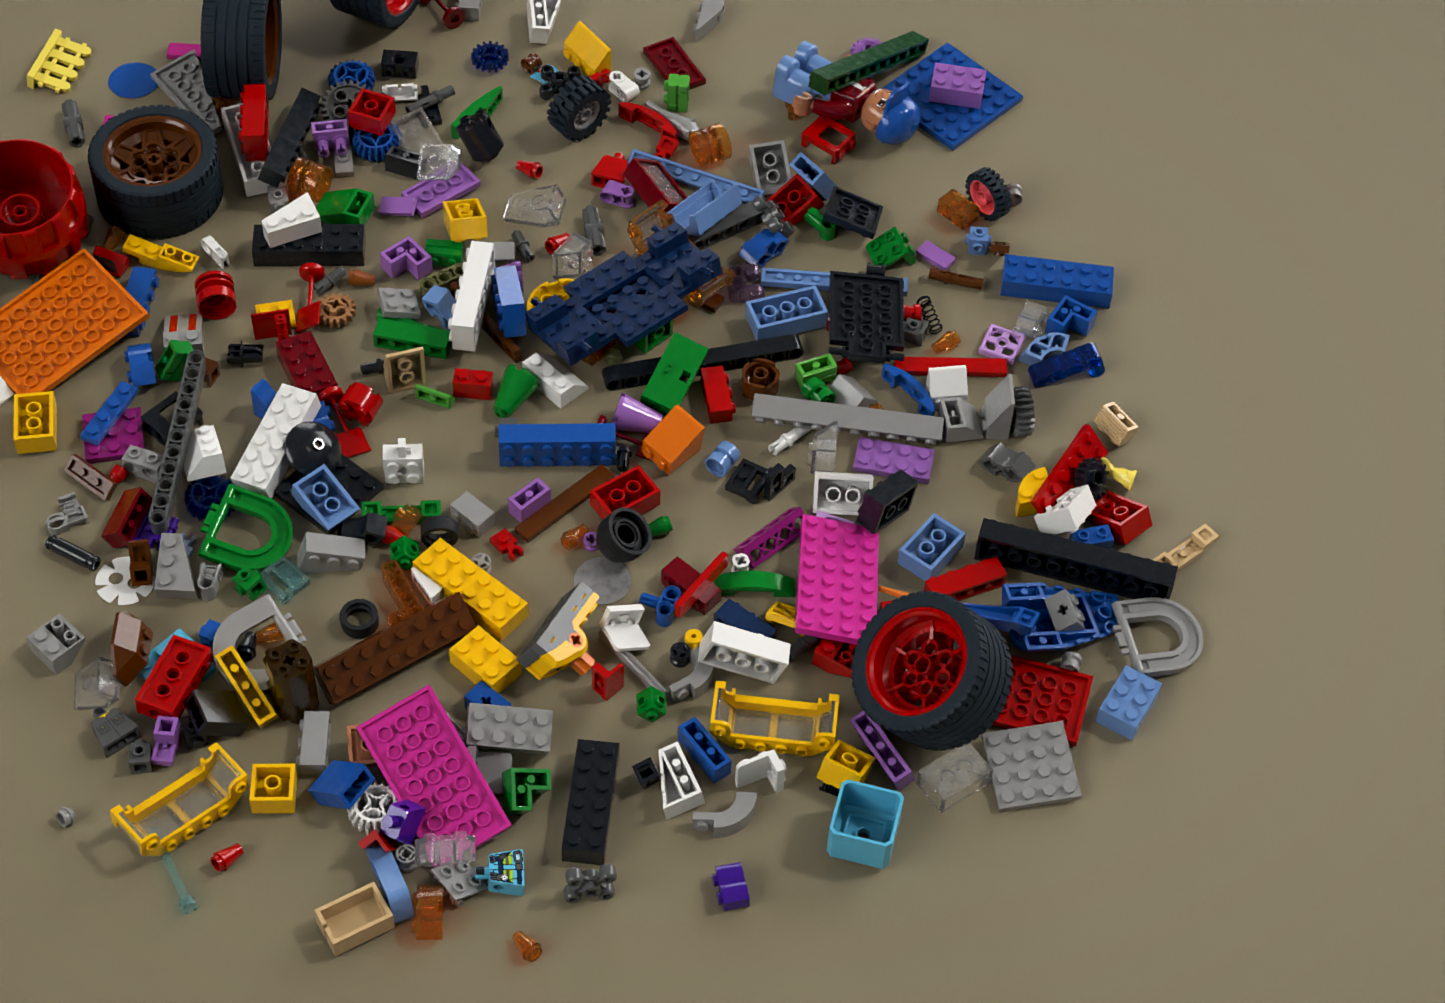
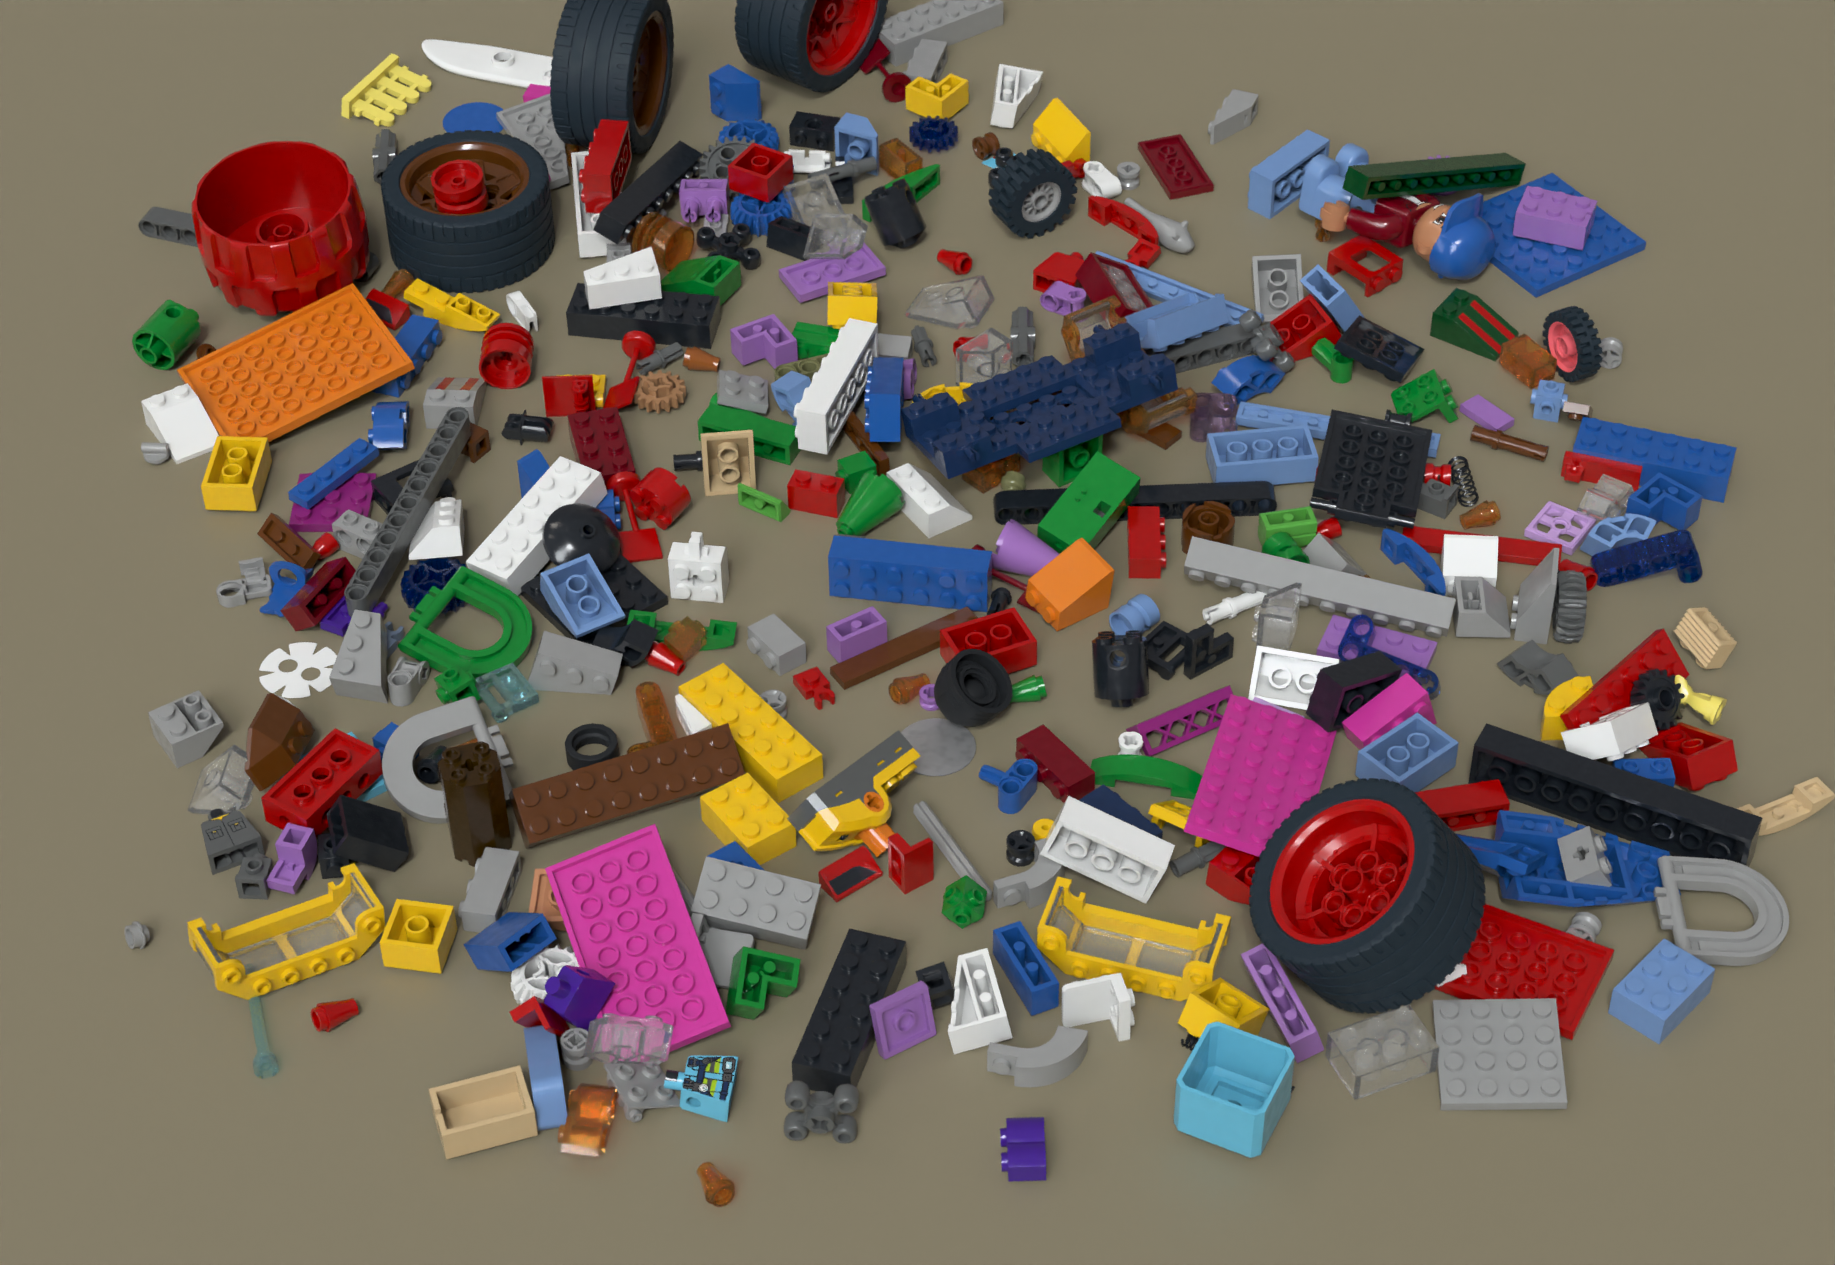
camera: 15 degrees right, 10 degrees down
(72, 552) = (240, 628): black axle -> none
(98, 515) = (284, 587): none -> blue hair
(125, 26) = (485, 62): none -> white piece
(140, 562) = (322, 646): reddish brown brick -> none
(151, 161) = (459, 187): none -> red wheel
(173, 360) = (428, 419): green brick -> none
(246, 686) = (415, 805): yellow brick -> none
(333, 39) = (734, 95): none -> blue slope
(358, 175) = (729, 245): none -> black gear
(397, 206) = (770, 284): medium lavender tile -> none
(404, 551) = (671, 674): green brick -> none
(435, 72) = (856, 139): none -> medium blue slope
(439, 523) = (726, 643): black tyre -> none
(470, 85) = (898, 158): none -> clear orange brick
(488, 26) = (937, 98): none -> yellow brick
(497, 361) = (853, 467): none -> green brick
(565, 692) = (849, 874): none -> red slope
(622, 627) = (947, 801): white bracket -> none
(630, 803) = (903, 1020): none -> medium lavender plate
(677, 92) = (1170, 192): bright green brick -> none
(701, 584) = (1066, 759): red tile -> none
(710, 144) = (1200, 253): clear orange wheel -> none
(723, 503) = (1120, 677): none -> black cylinder
(759, 67) = (1280, 177): none -> medium blue brick
(890, 468) = (1363, 644): none -> clear blue beam
(913, 182) = (1471, 325): none -> dark green slope
(913, 515) = (1387, 711): none -> dark pink wedge
(1019, 294) = (1589, 468): none -> red hinge
(1022, 380) = (1589, 572): none -> red cone

